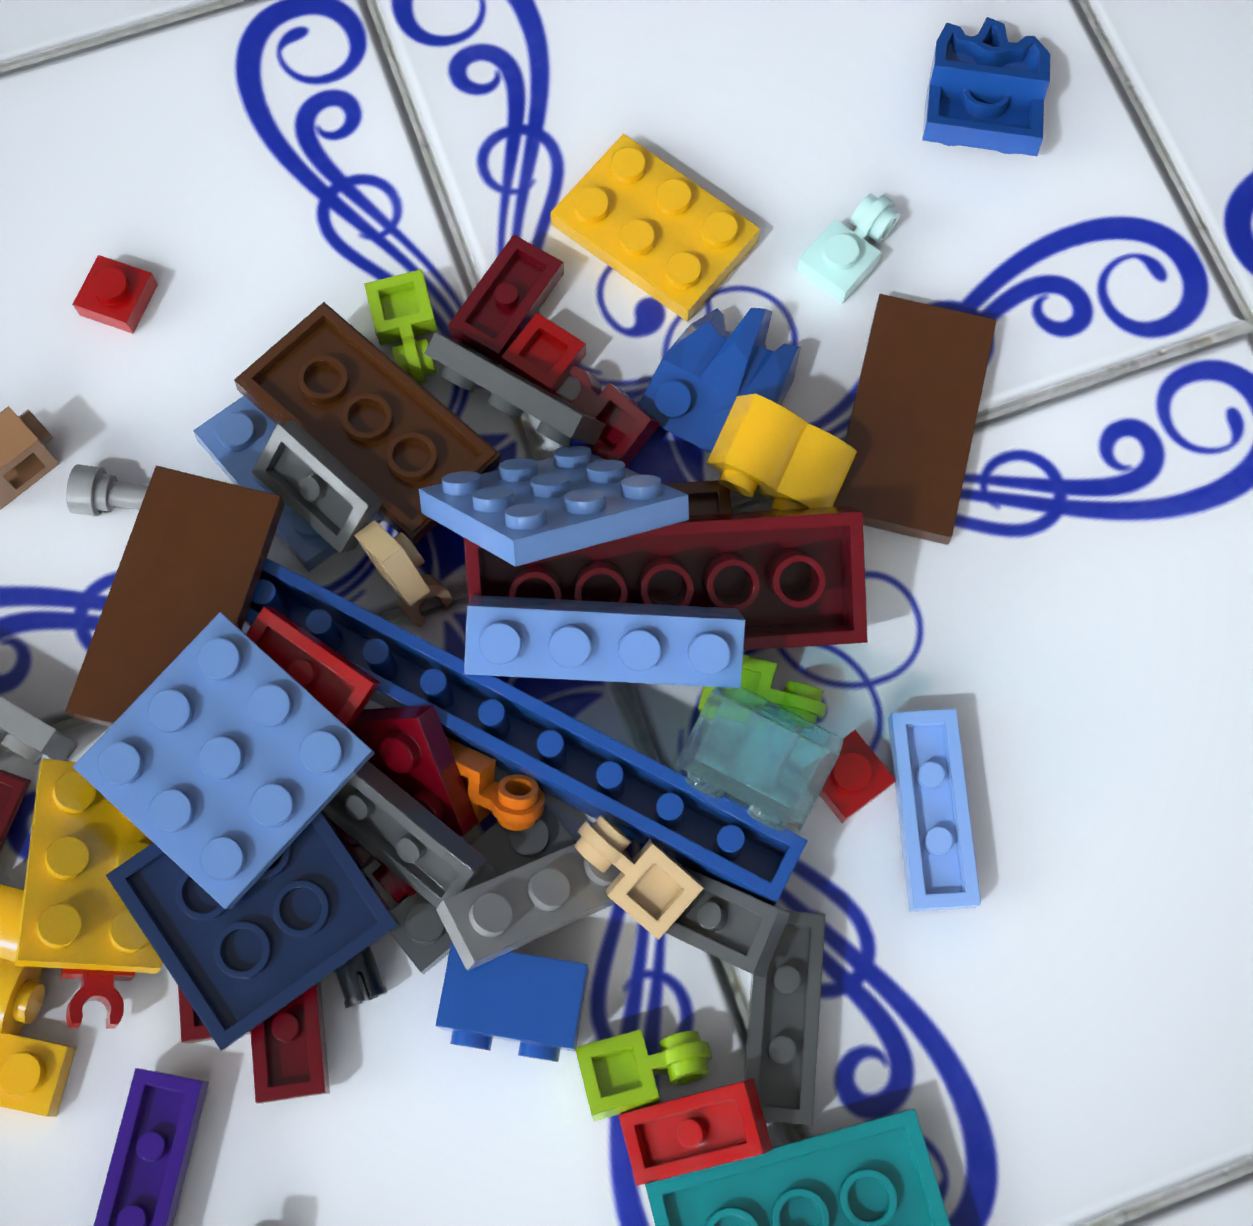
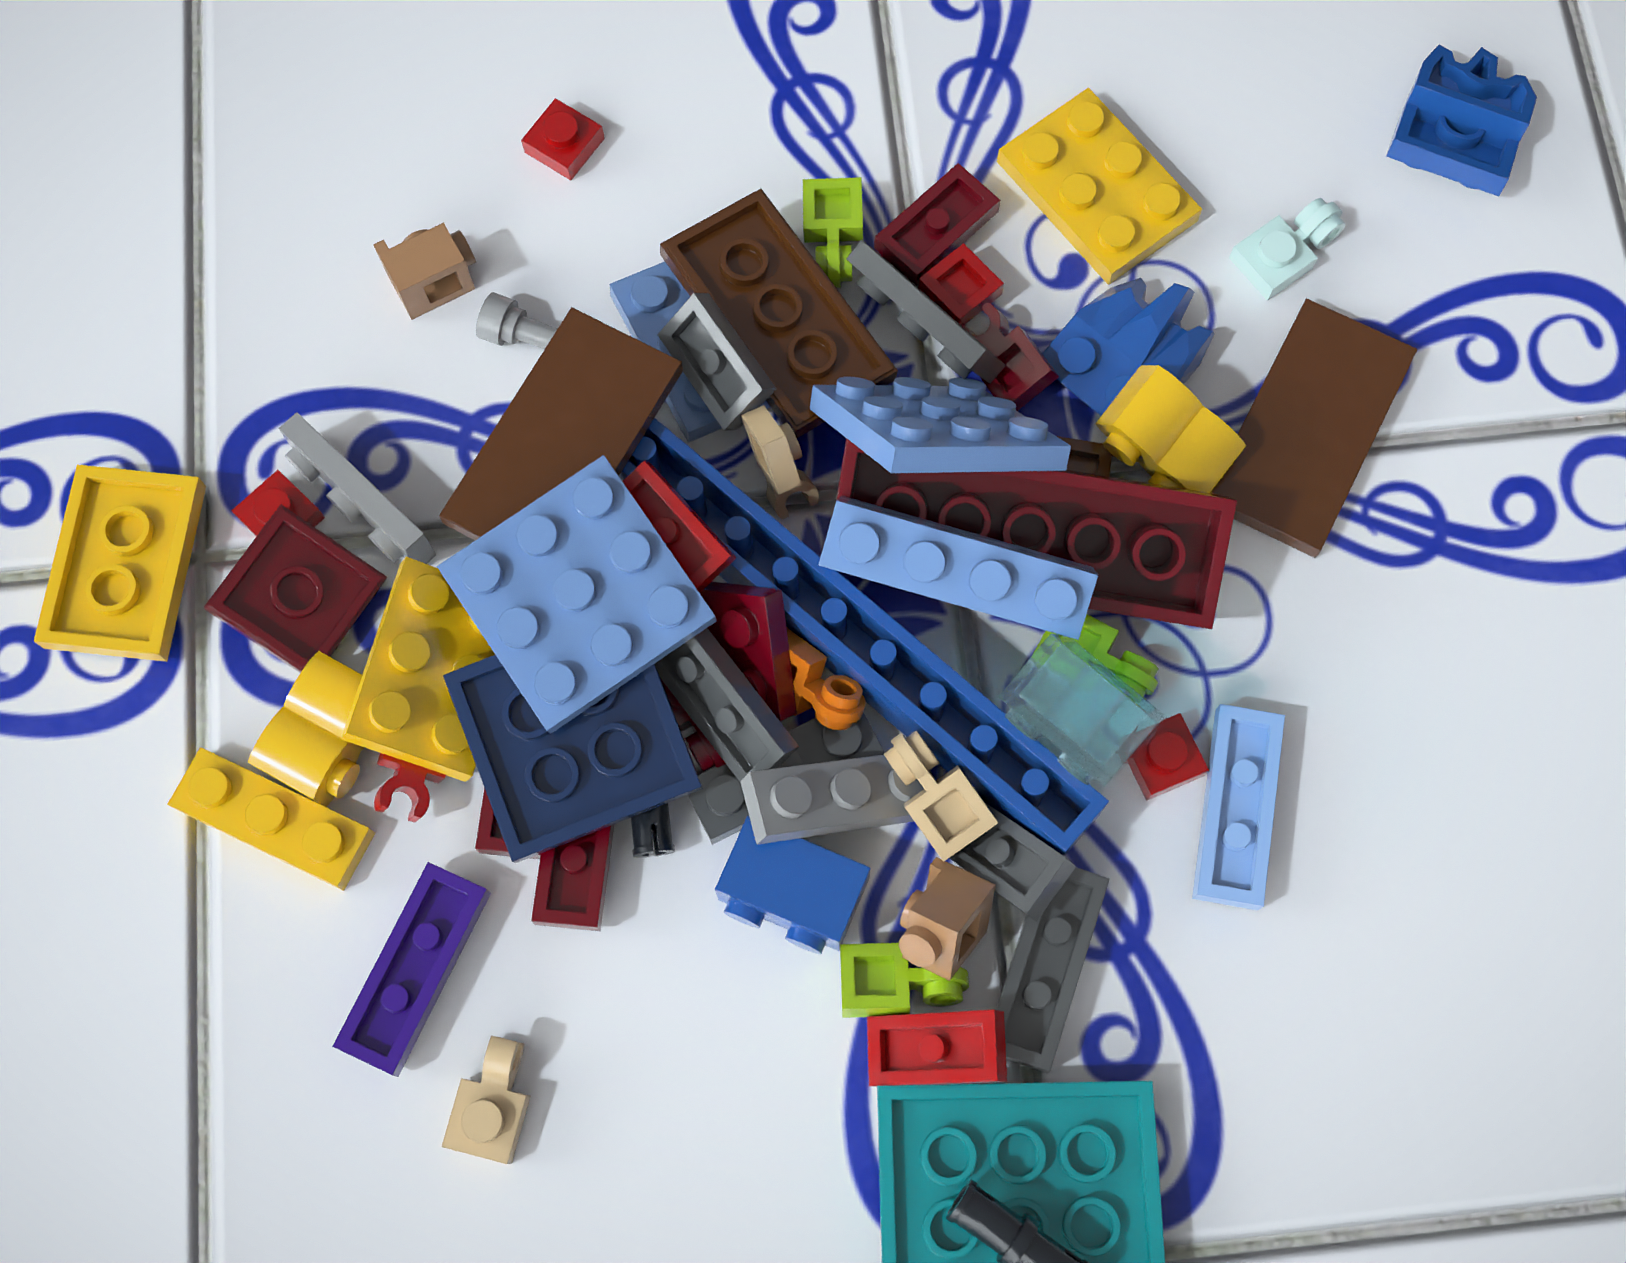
camera: 15 degrees right, 0 degrees up
(673, 997) = (946, 919): none -> medium nougat brick

